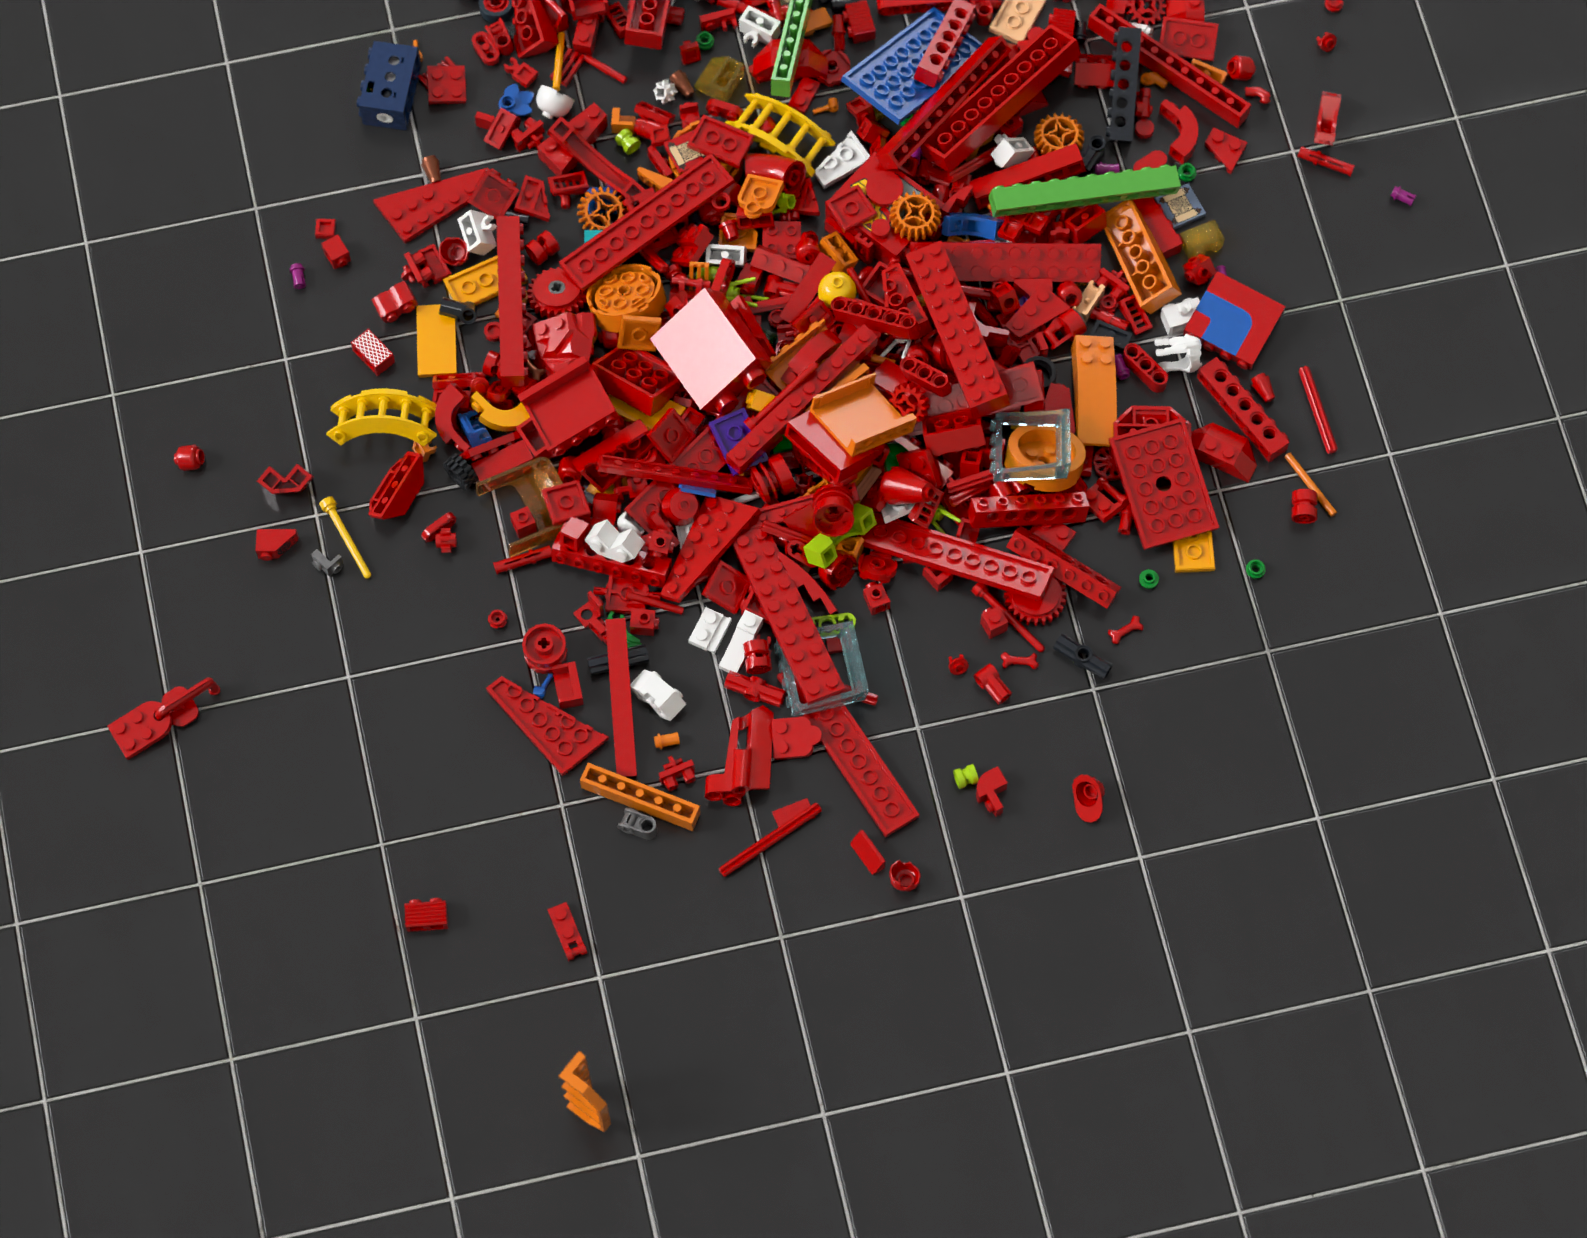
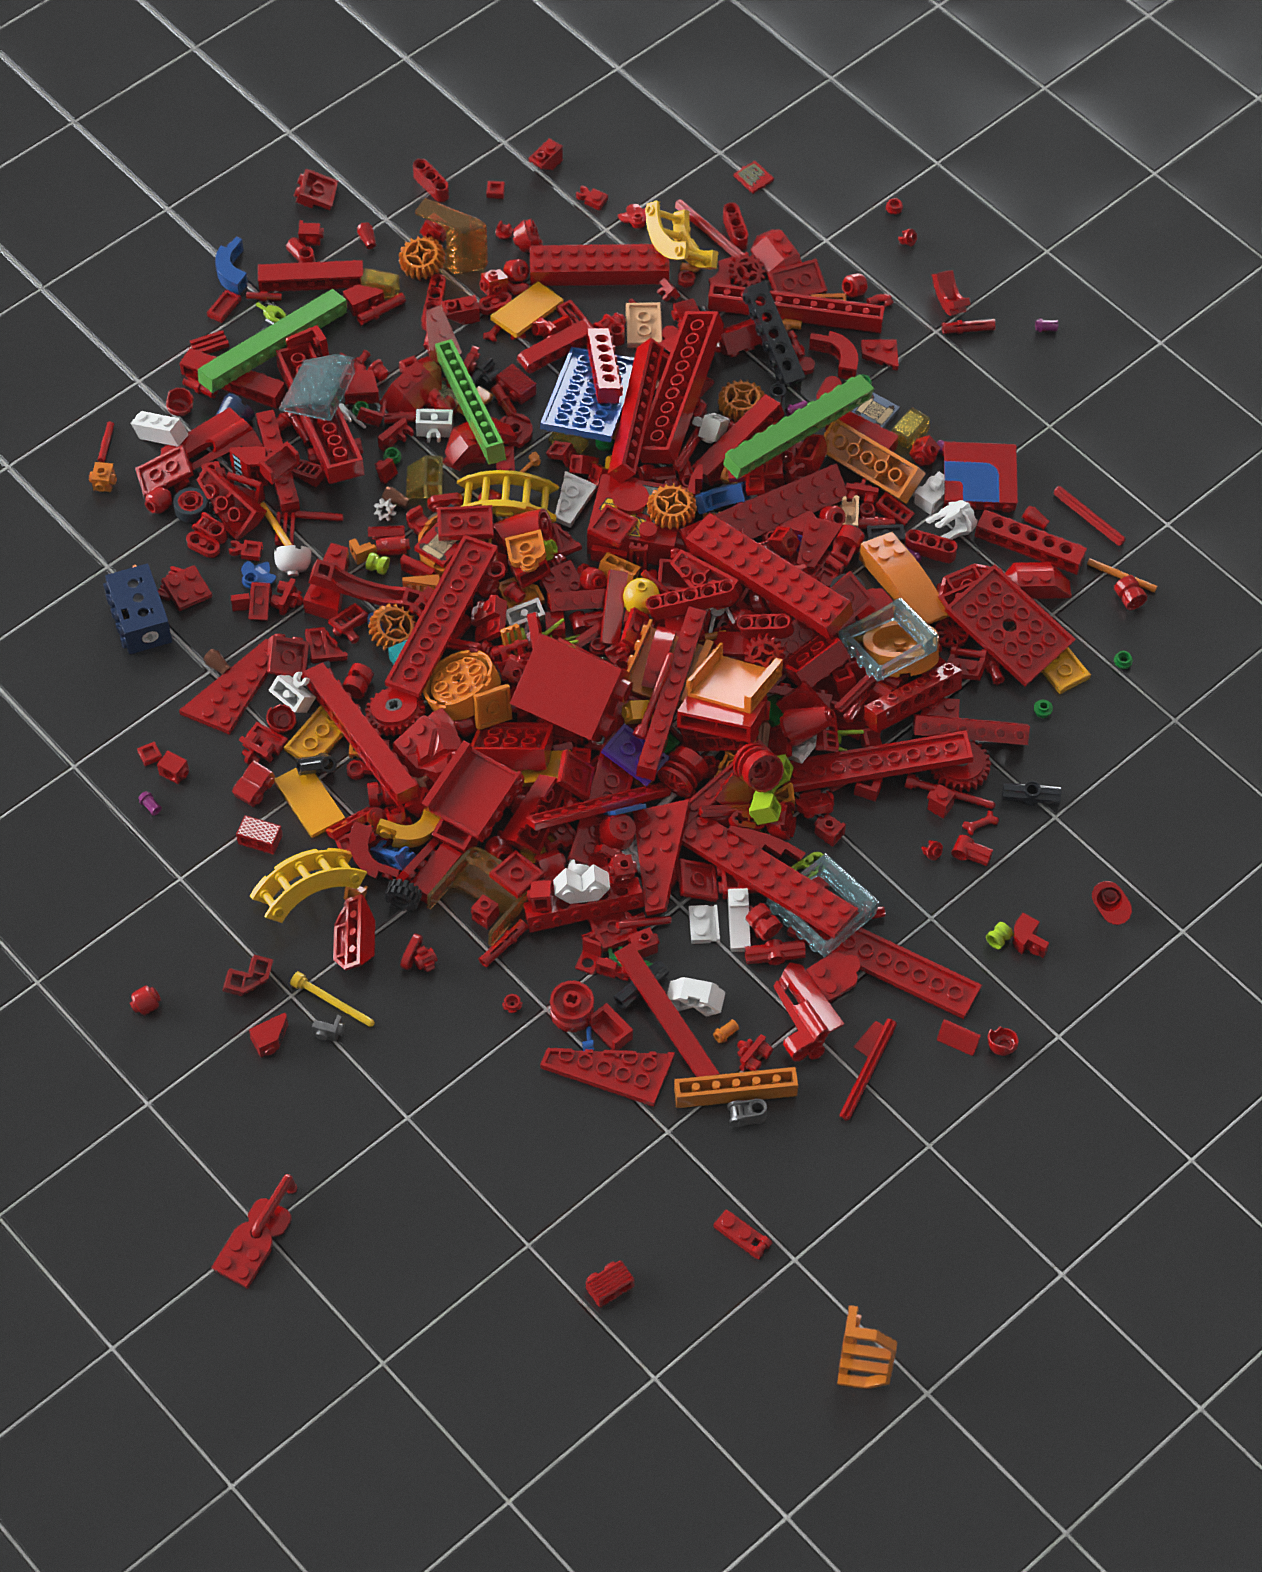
camera: 30 degrees left, 10 degrees down
(659, 135) = (405, 544): red tile -> none
(1133, 625) = (1054, 750): red piece -> none

